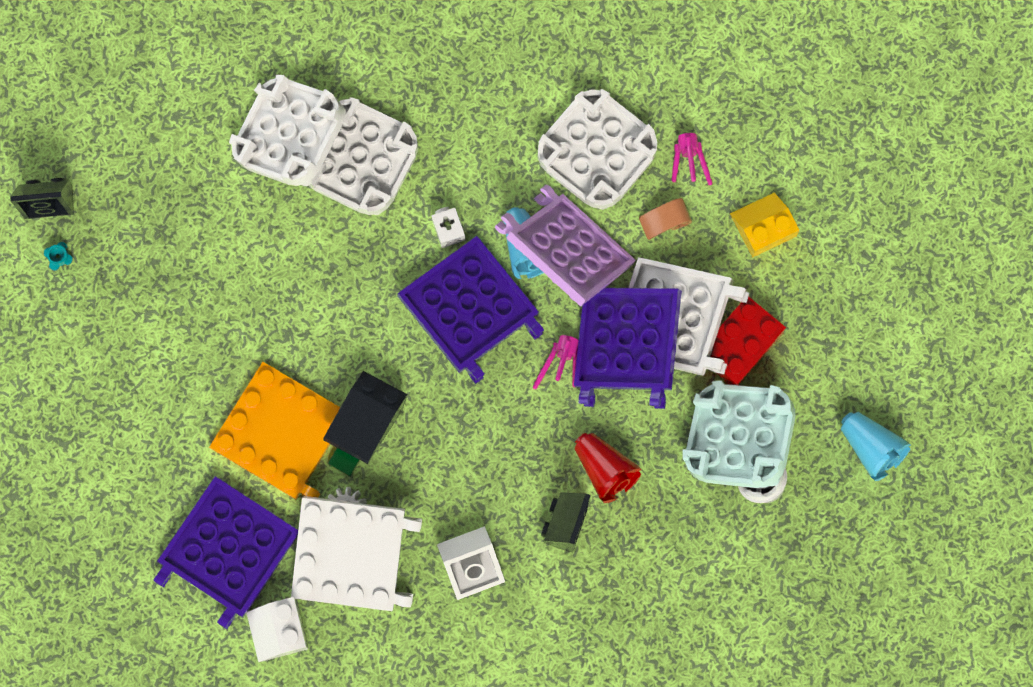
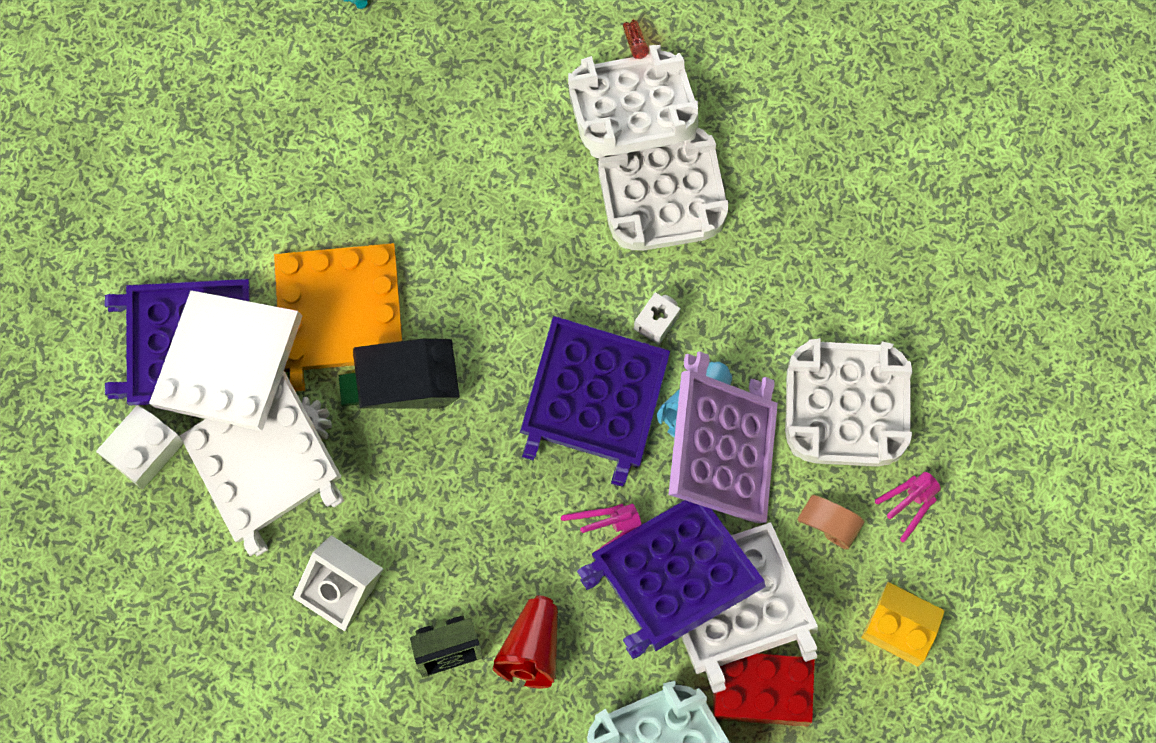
camera: 50 degrees right, 5 degrees down
(240, 95) = (635, 39): none -> clear red piece
(266, 528) = (226, 360): none -> white plate

